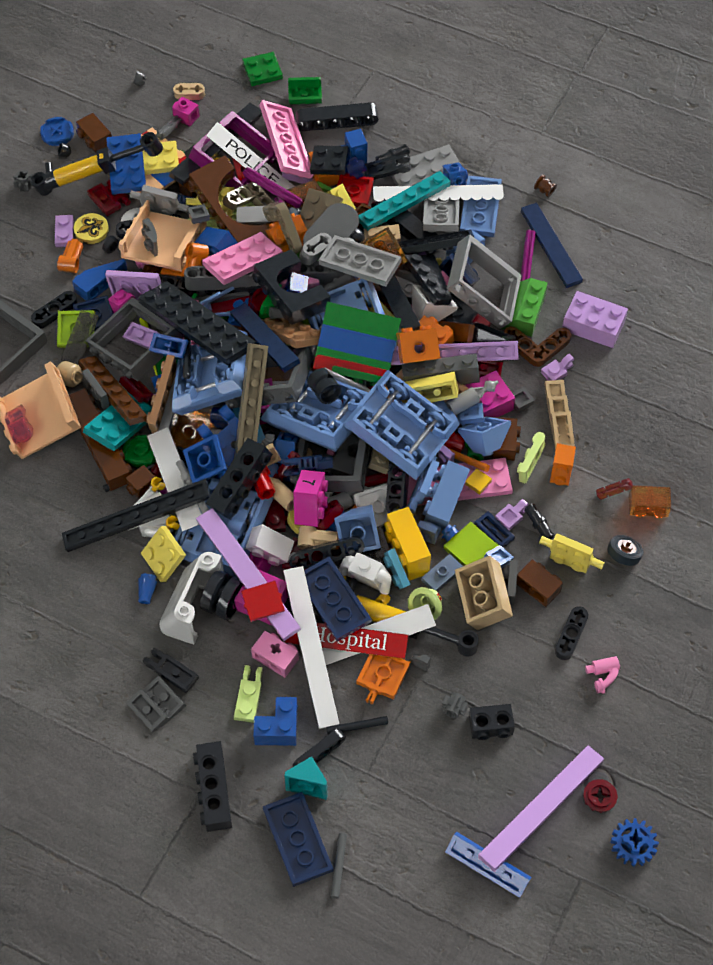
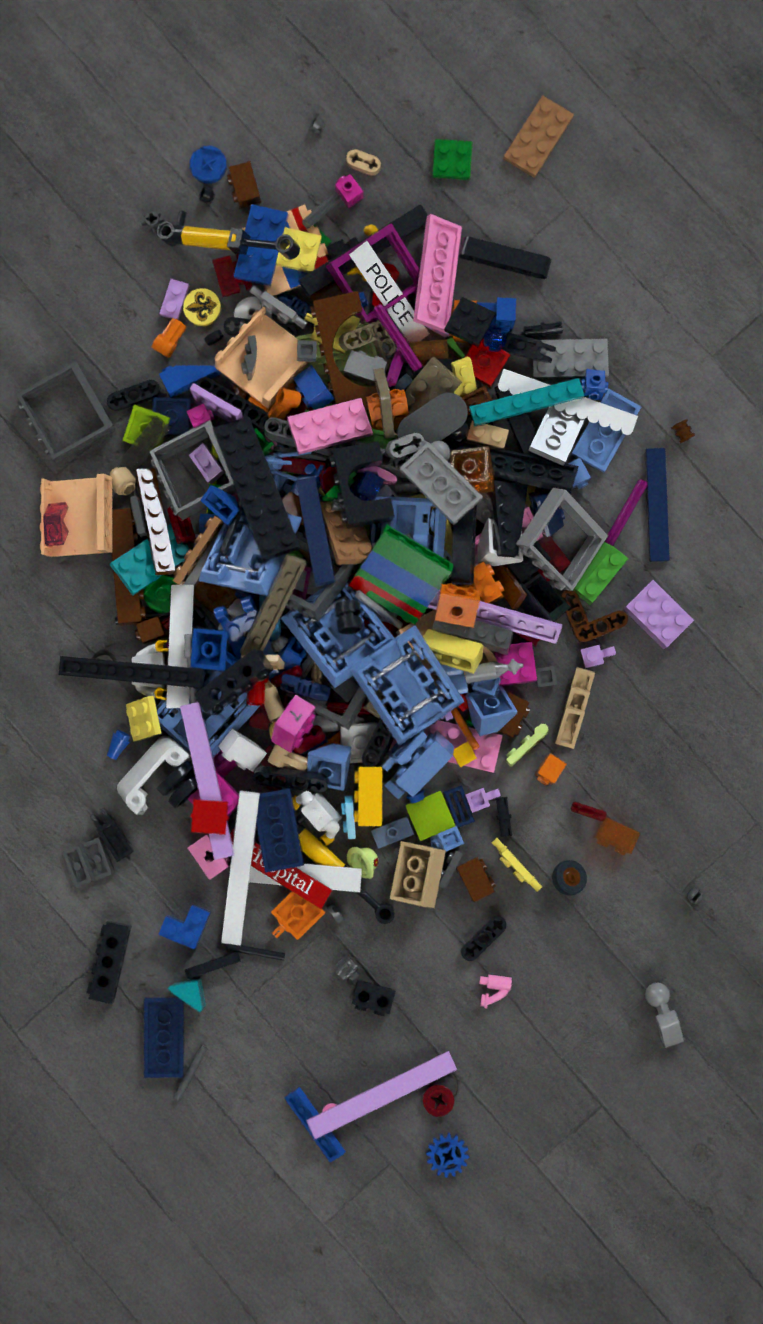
camera: 20 degrees right, 25 degrees up
(248, 696) = (171, 886): yellowish green hinge -> none
(305, 90) = (484, 211): green bracket -> none
(326, 35) = (538, 136): none -> medium nougat plate

